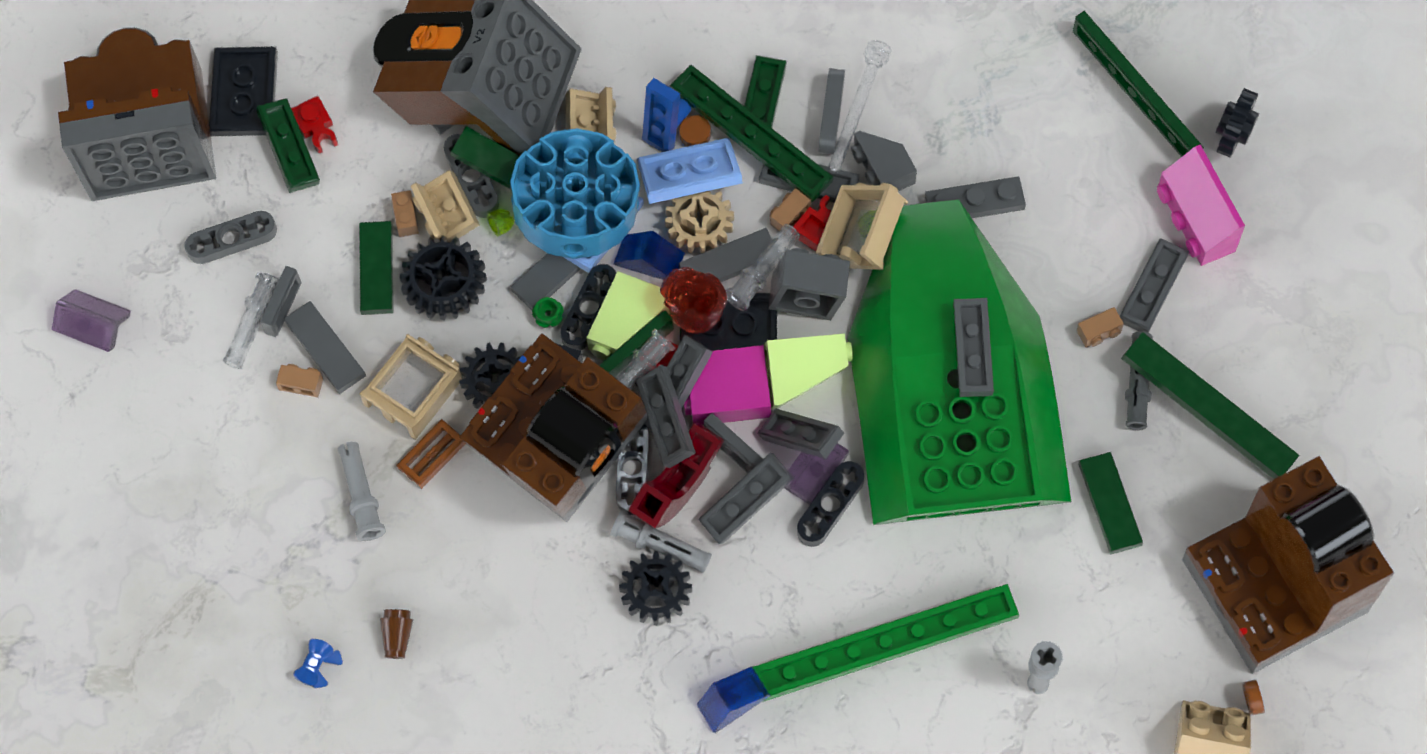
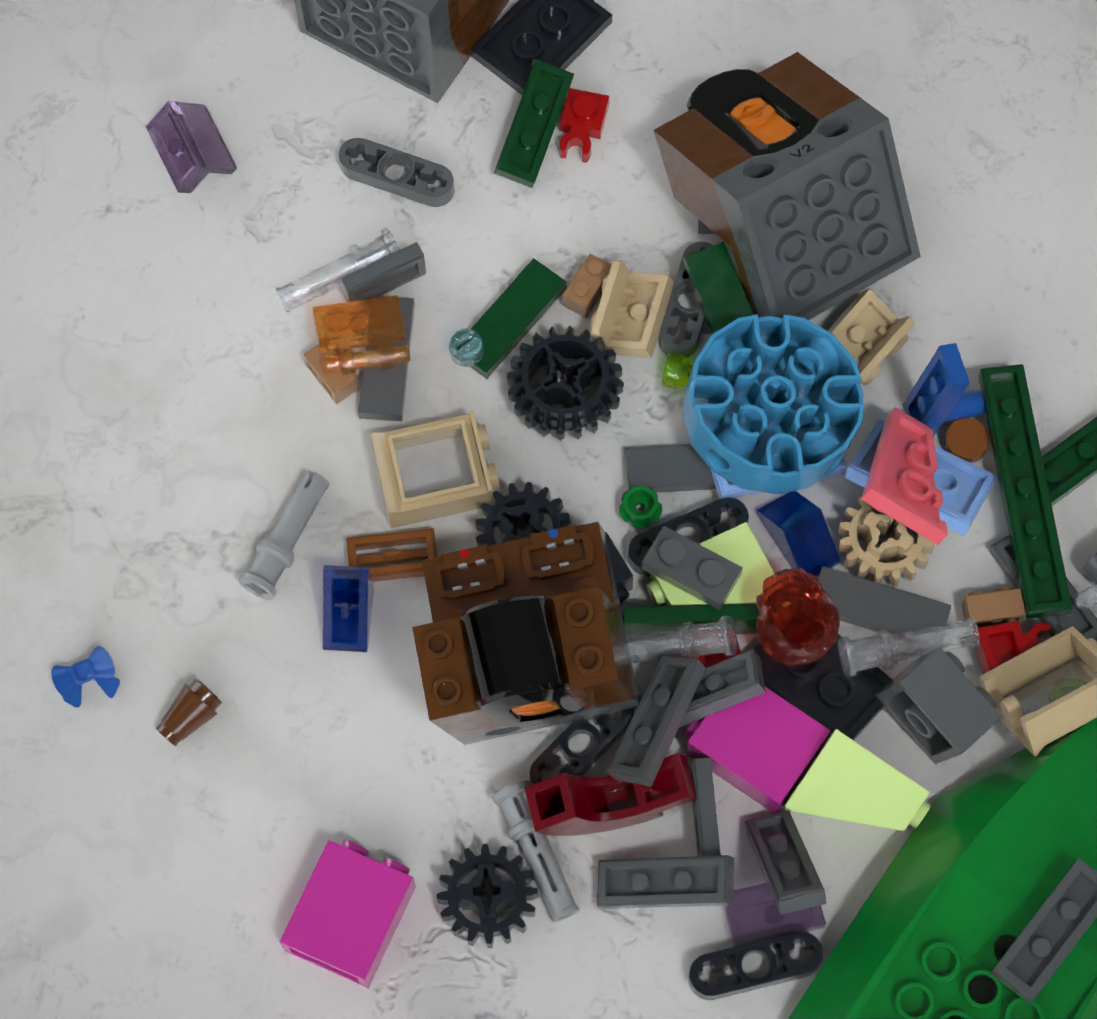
camera: 40 degrees right, 0 degrees up
(295, 338) = (359, 325): none -> clear orange plate
(374, 303) = (471, 352): none -> clear light blue hinge
(434, 501) = (347, 608): none -> clear blue slope
(588, 661) = (349, 912): none -> dark pink brick
(611, 319) = (691, 567): none -> dark grey plate
(683, 176) = (903, 476): none -> coral wing

